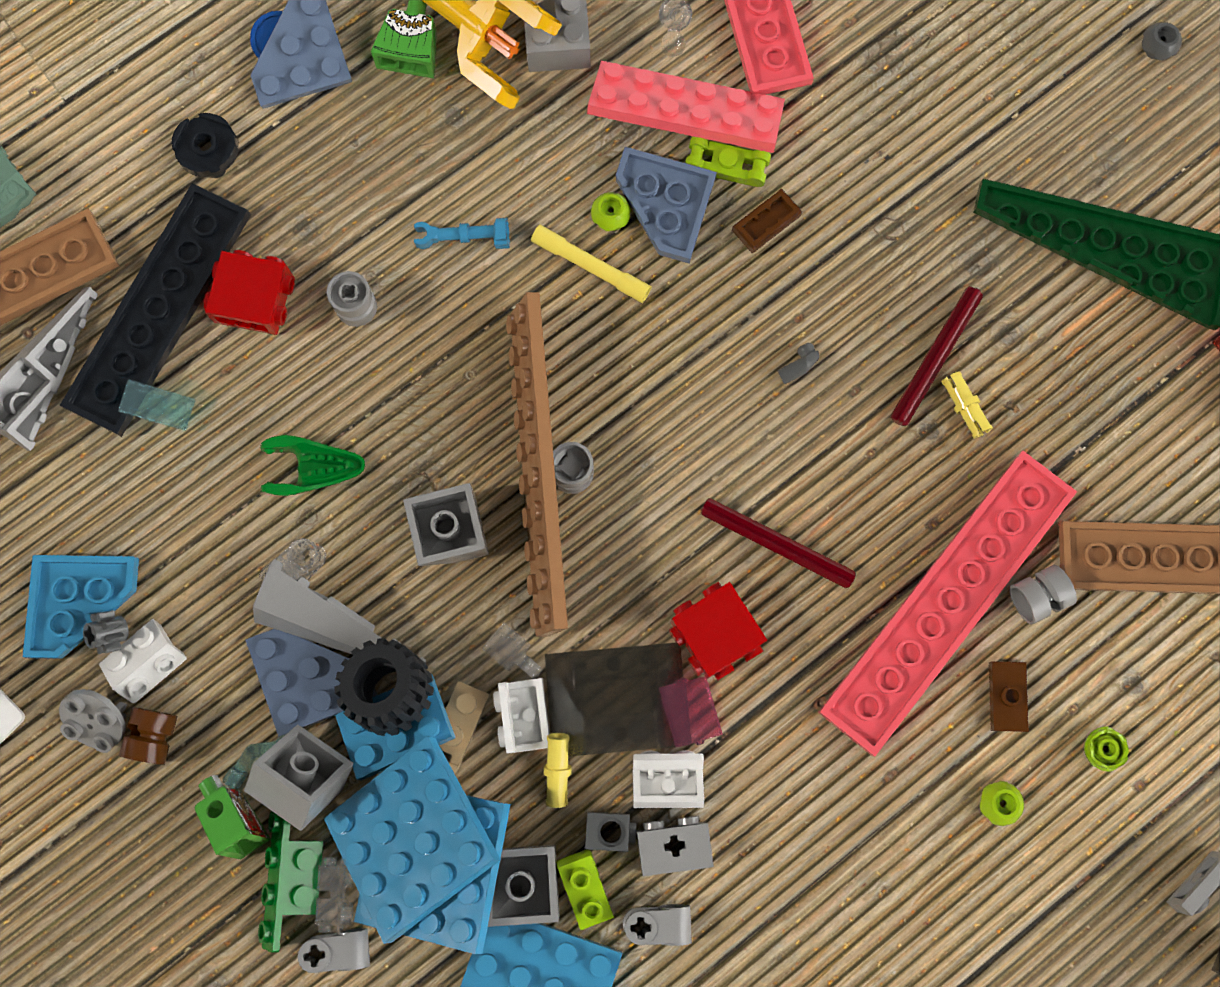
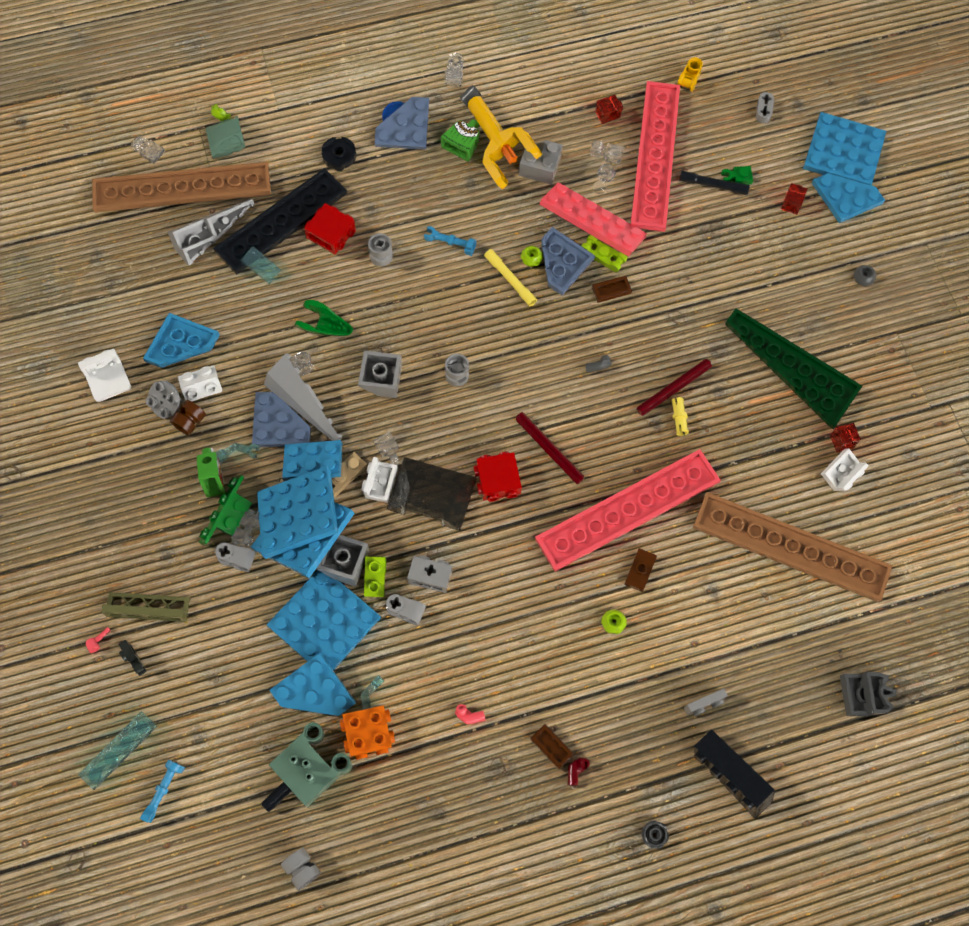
camera: 20 degrees right, 10 degrees down
(105, 632) = (189, 360): dark grey gear -> none
(298, 777) = (254, 462): light grey slope -> none
(364, 672) = (304, 435): black tyre -> none
(537, 460) = (439, 356): medium nougat plate -> none
(557, 770) = (386, 512): light yellow pin -> none
(594, 839) = (396, 545): dark grey brick -> none
(668, 780) = (441, 539): white bracket -> none
(690, 711) = (467, 511): clear pink piece -> none
(1045, 593) = (680, 523): light grey wheel -> none
(1117, 749) = (686, 610): lime plate -> none

